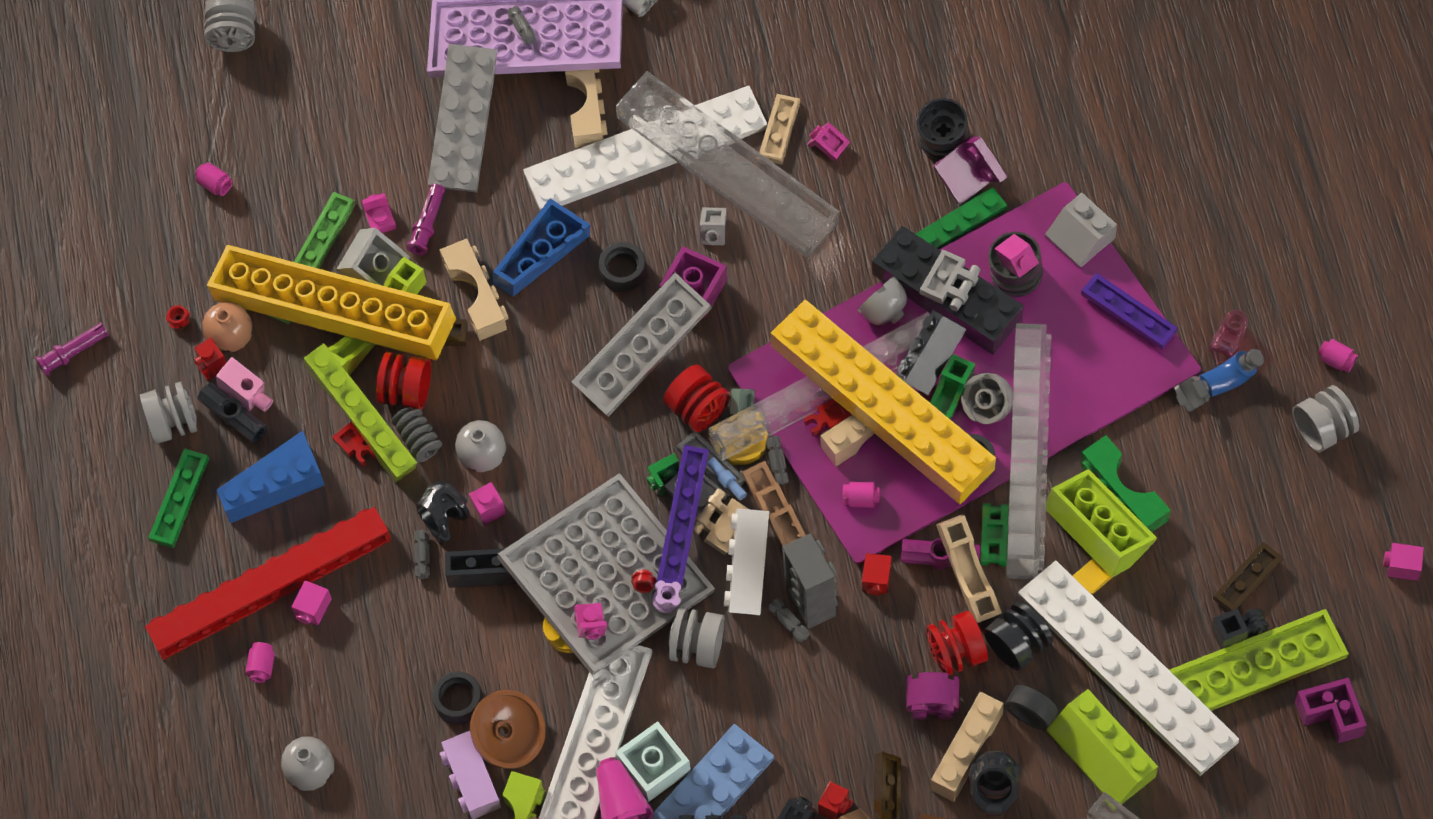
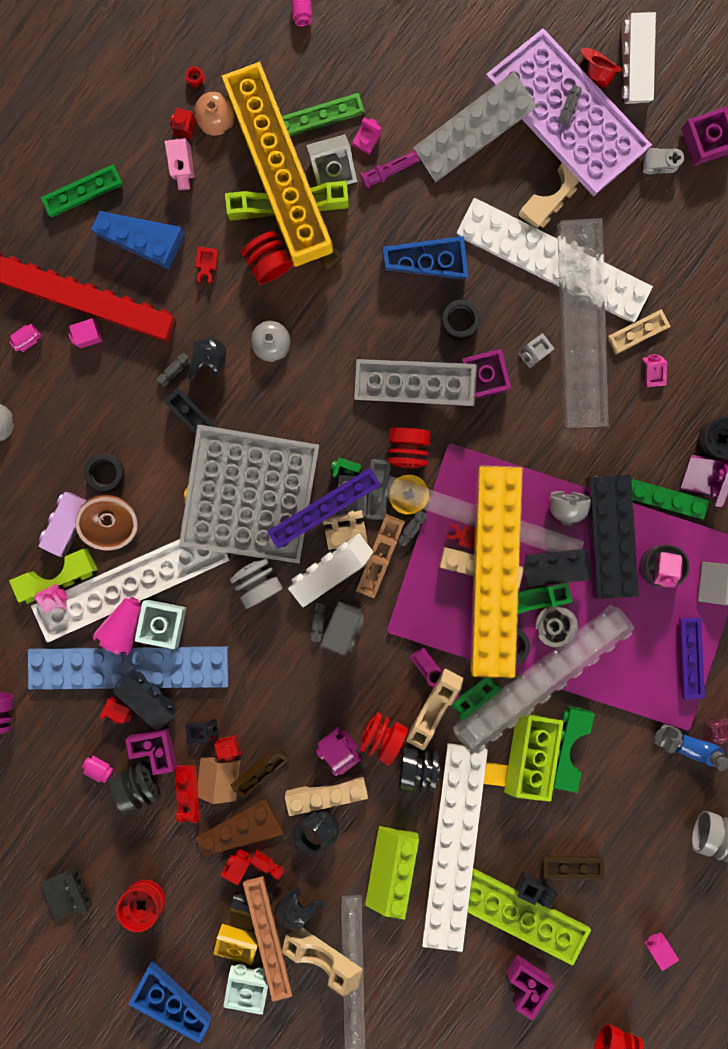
camera: 45 degrees right, 25 degrees up
(62, 354) = (109, 29): magenta pin -> none
(168, 412) = (123, 132): light grey wheel -> none
(241, 421) = (160, 182): black piece -> none
(366, 419) = (221, 233): lime arch -> none
(416, 434) = (242, 296): dark grey piece -> none
(462, 265) = (356, 265): tan arch -> none
(487, 504) = (235, 380): dark pink brick -> none
(590, 621) = (206, 517): dark pink bracket -> none
(643, 581) = (261, 523): red plate -> none
(668, 591) = (262, 553): lavender brick -> none
(726, 478) = (373, 510): medium blue bar -> none
(741, 399) = (431, 475): sand green plate -> none
(861, 494) = (431, 600): dark pink brick -> none
(876, 574) = (389, 650): red brick -> none
(943, 276) = (615, 534): light grey plate -> none
(1031, 707) = (380, 814): black tyre -> none

